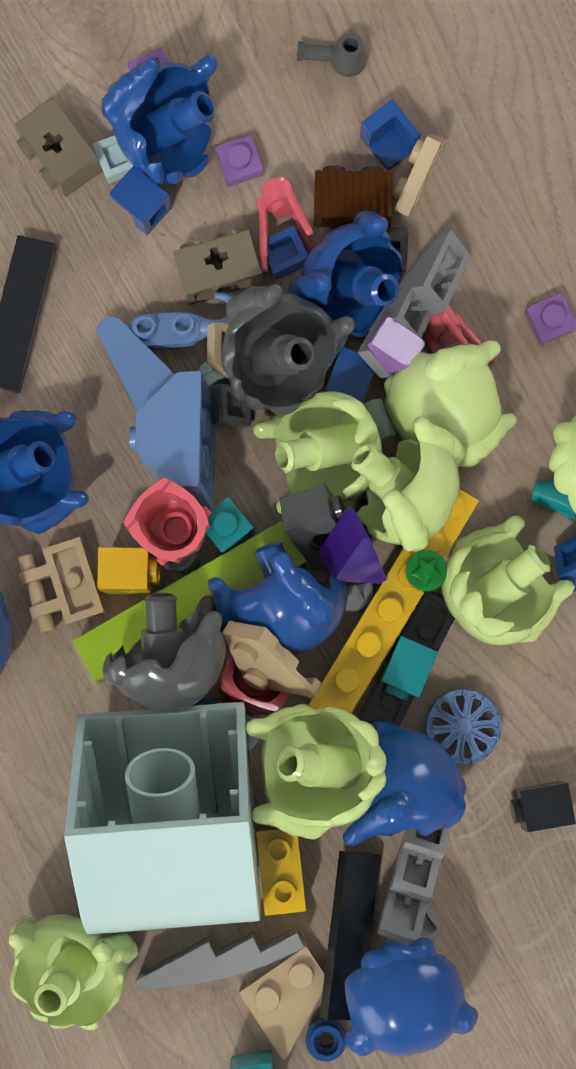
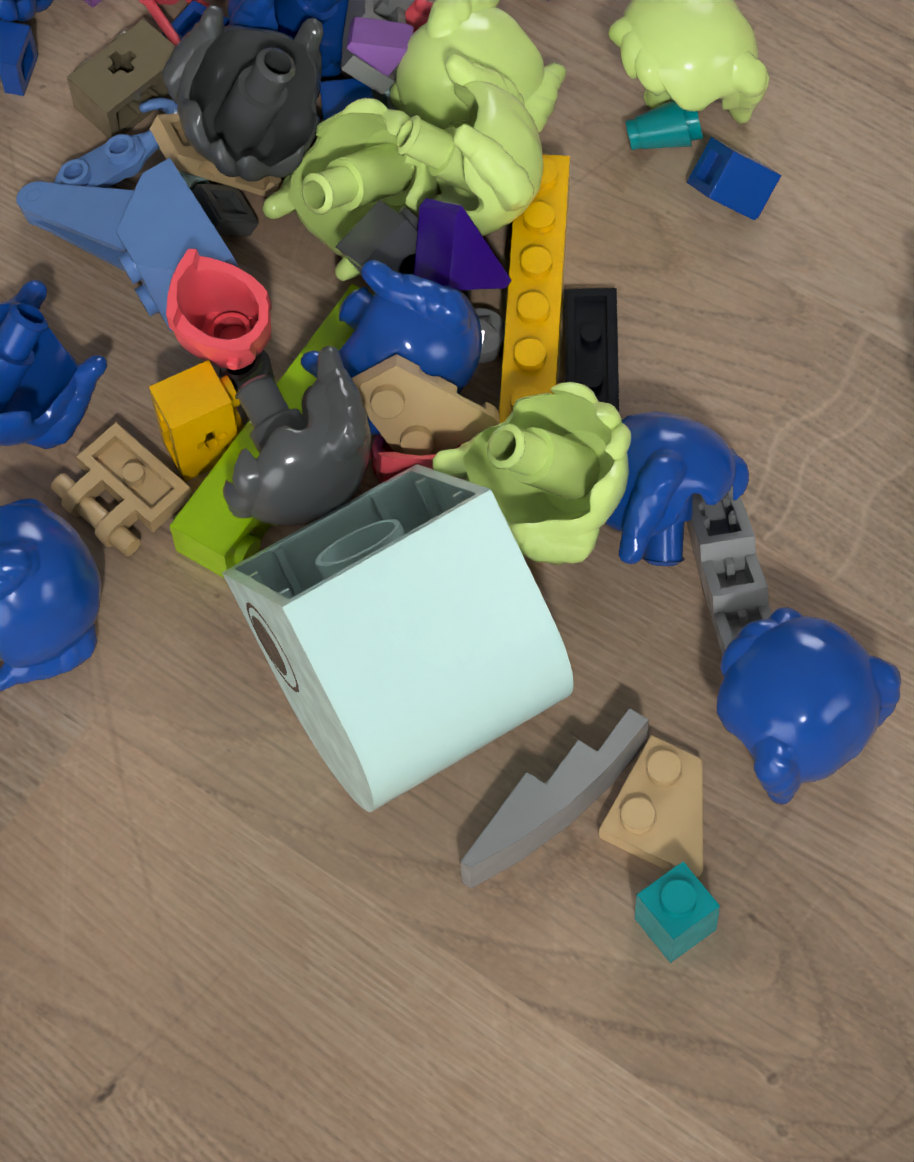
camera: 25 degrees left, 20 degrees down
(66, 971) = (367, 884): yellowish green piece -> none
(228, 526) = (292, 324): teal brick -> none
(280, 871) = (596, 673): yellow brick -> none
(325, 1052) = (739, 815): blue plate -> none
(349, 927) = (693, 692): black tile -> none
(407, 668) = (593, 359): teal brick -> none
(426, 571) = (550, 242): green tile -> none
(464, 726) = (699, 404): medium blue wheel -> none
(499, 587) = (642, 240): yellowish green piece -> none
(543, 806) = (841, 443): black brick -> none

